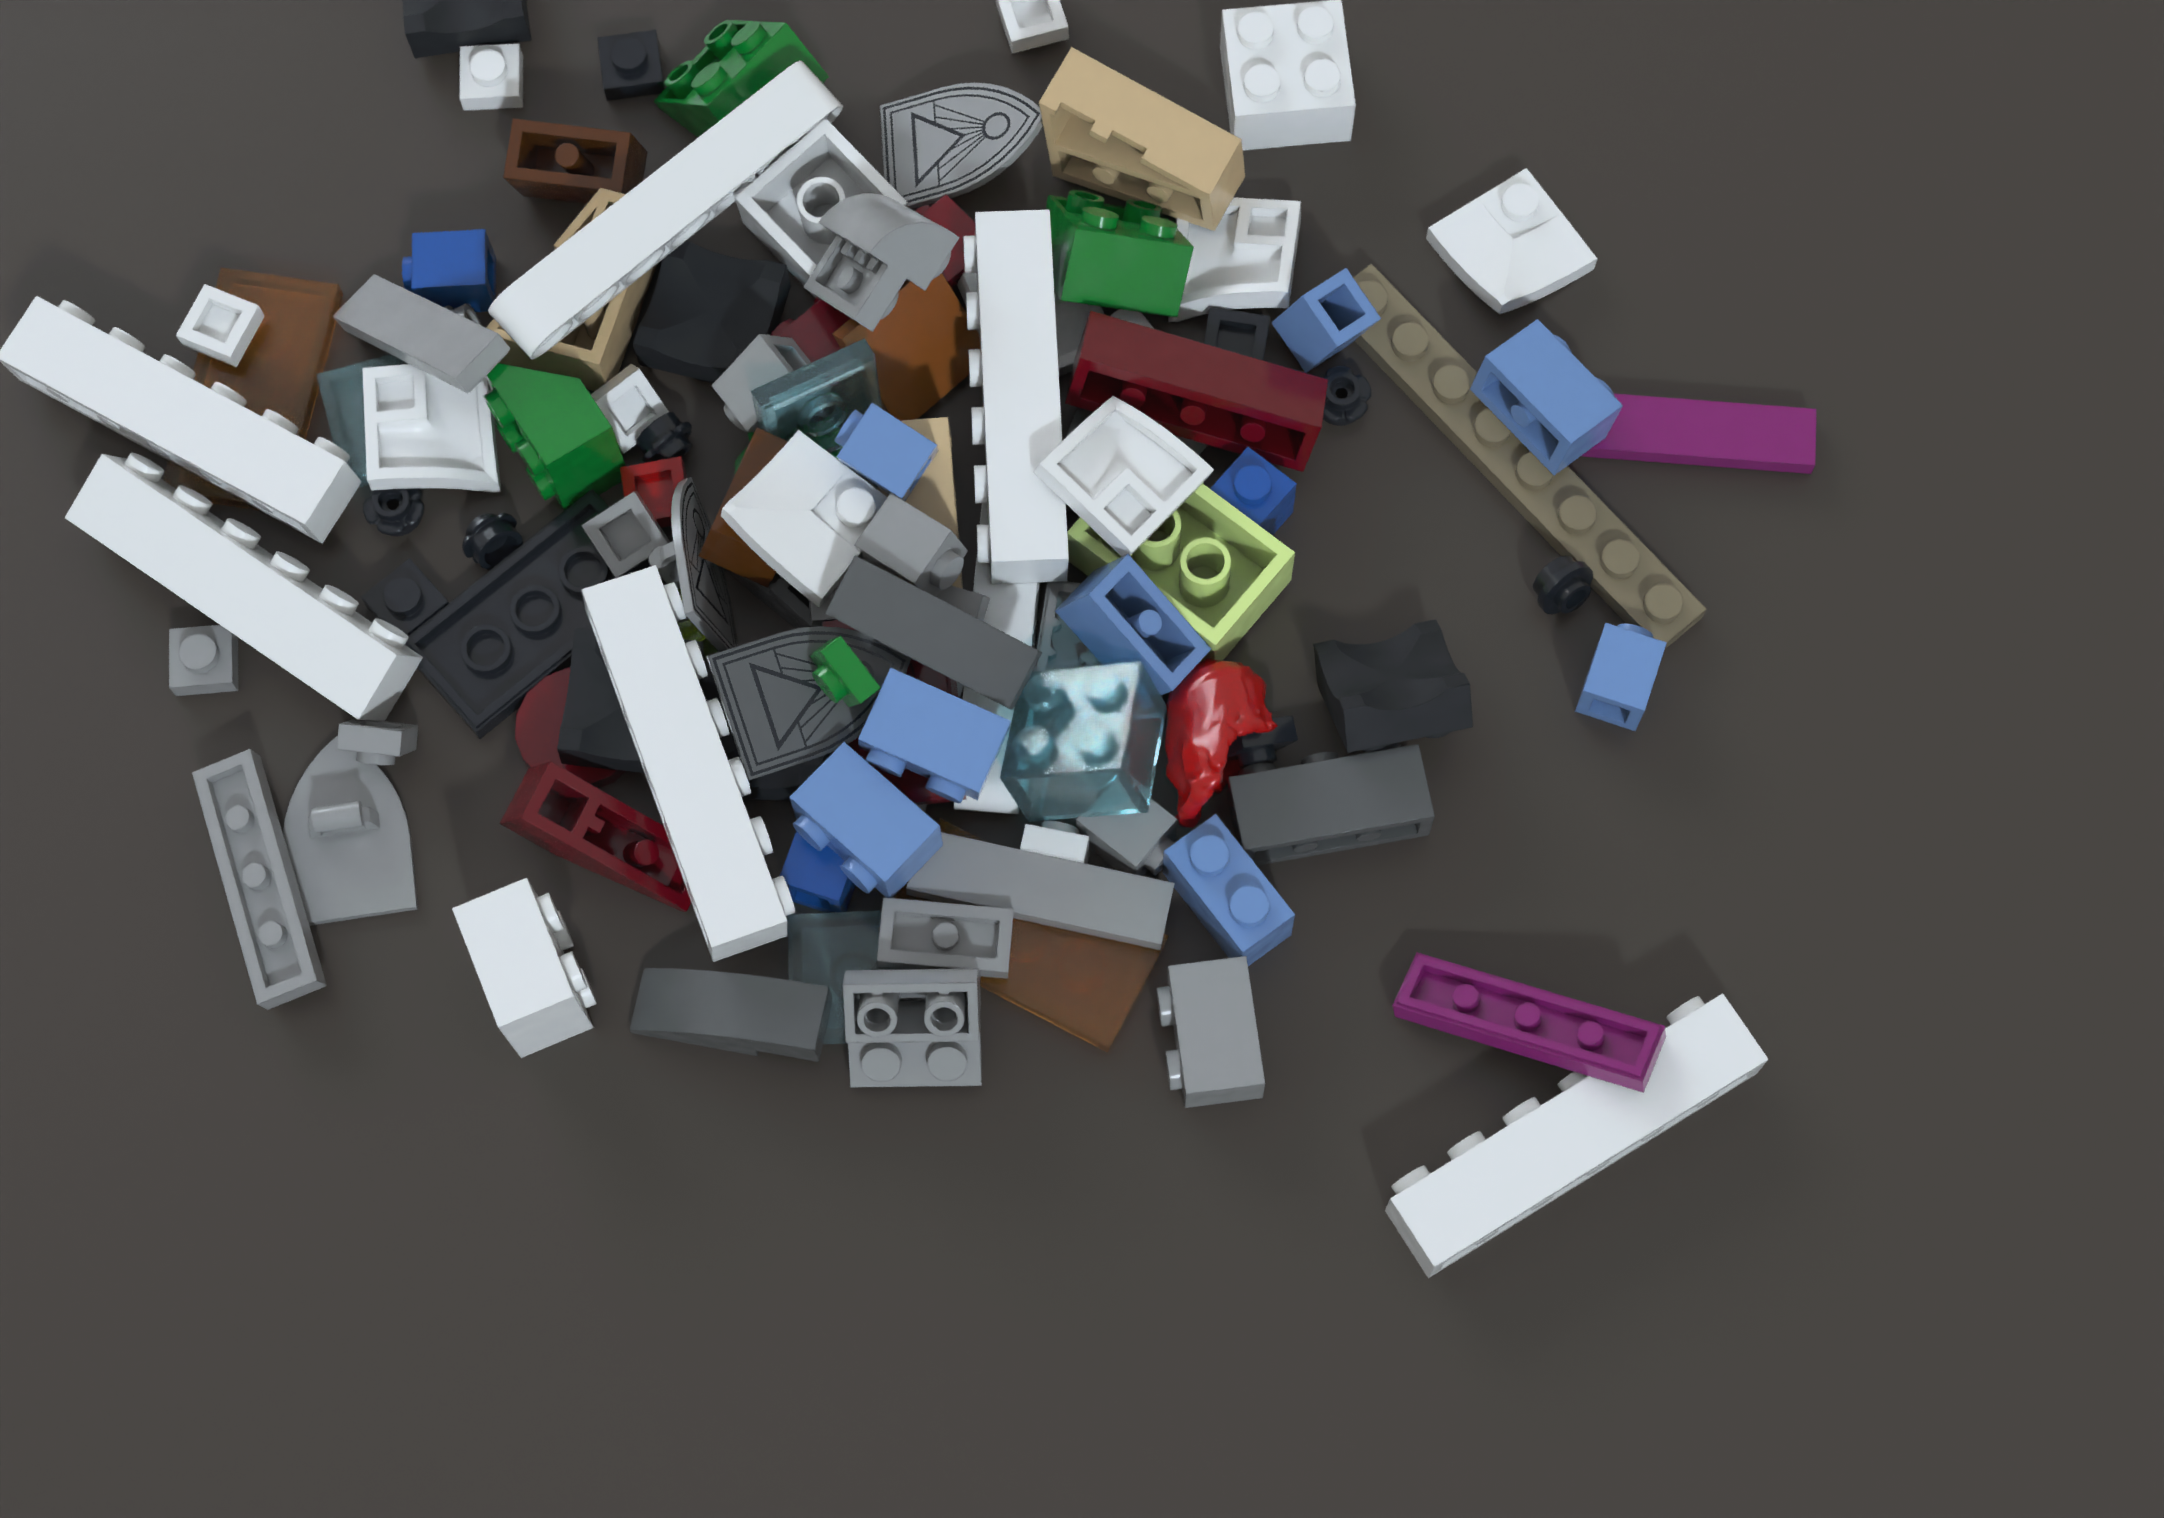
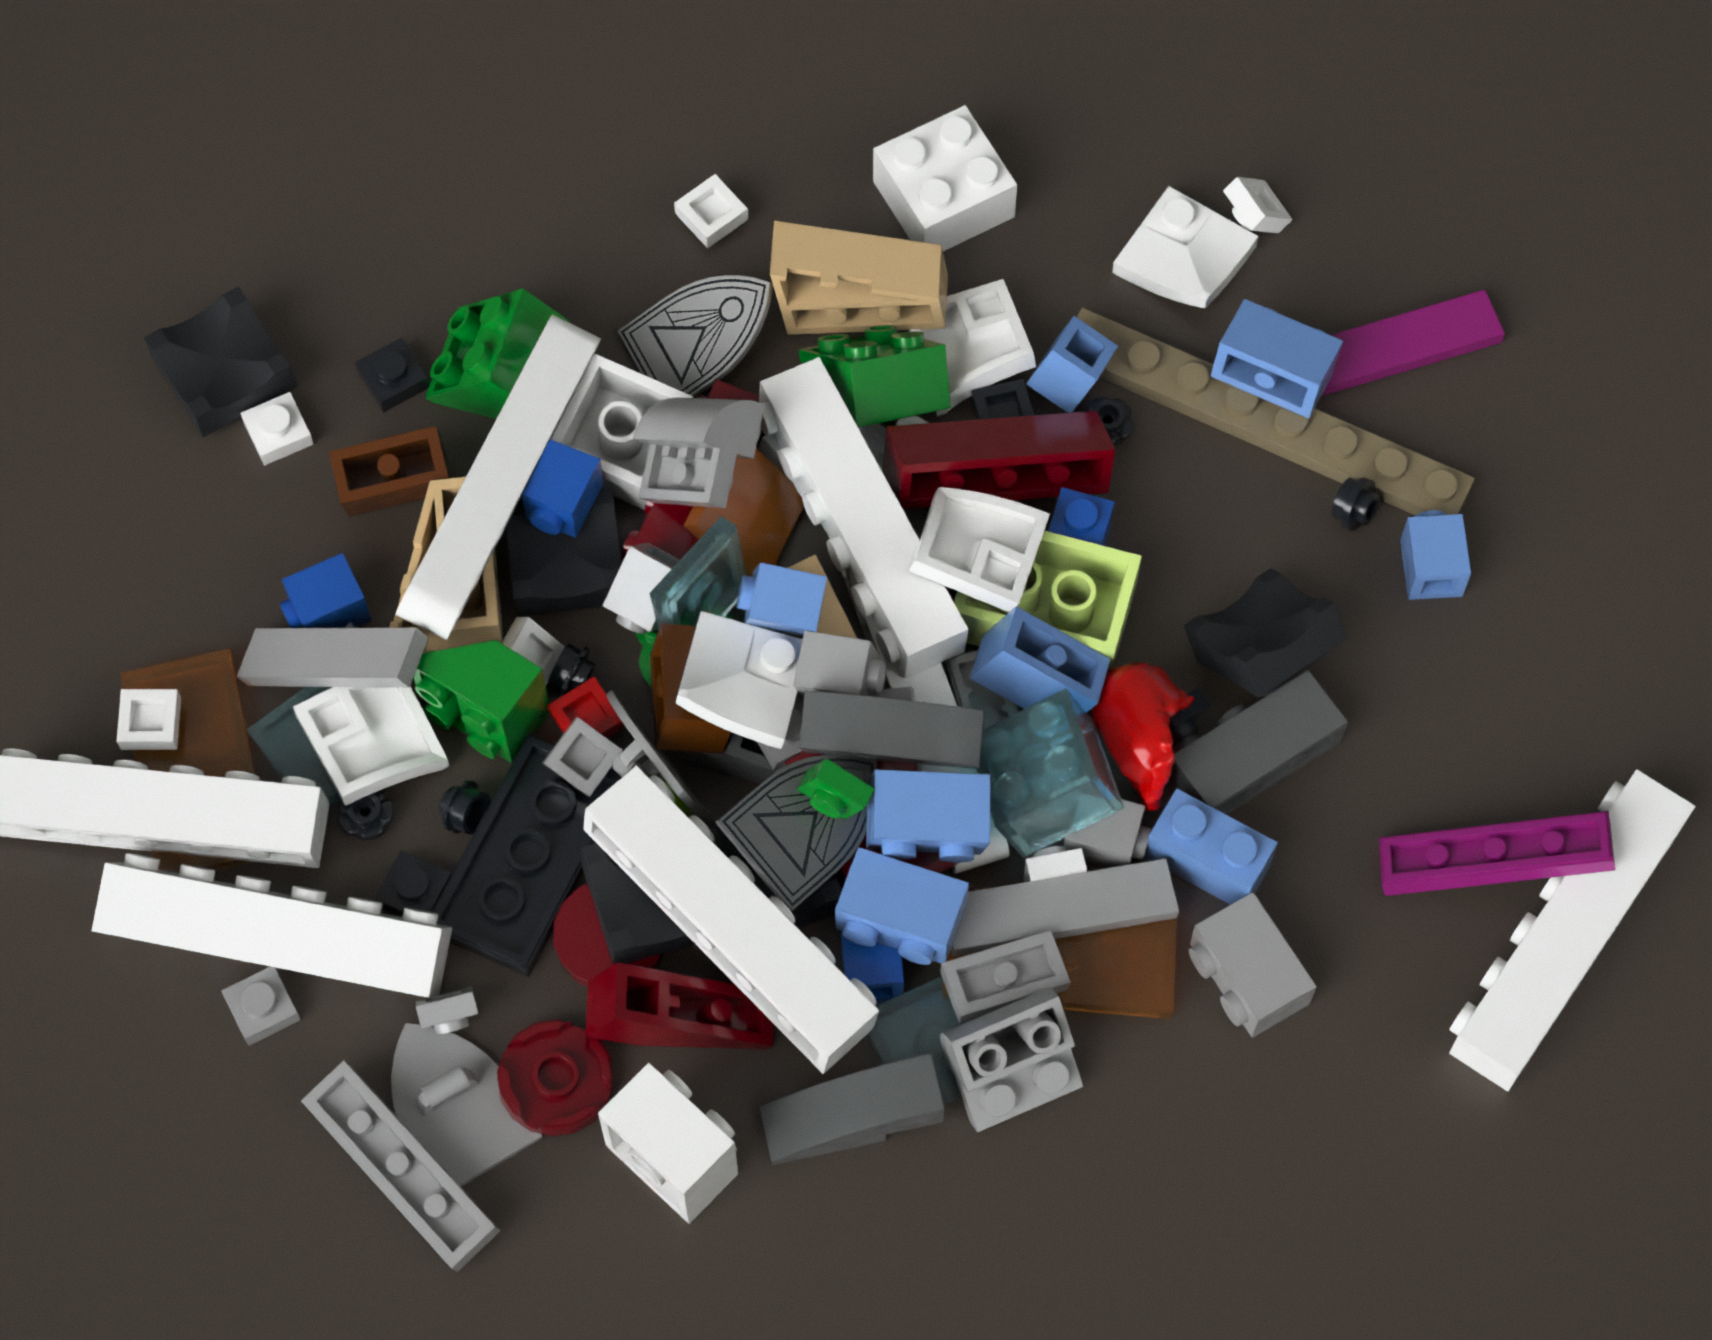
camera: 25 degrees left, 5 degrees down
(452, 850) = (554, 1078): none -> dark red tile
(727, 249) = (562, 489): none -> blue brick
(1611, 224) = (1256, 205): none -> white plate

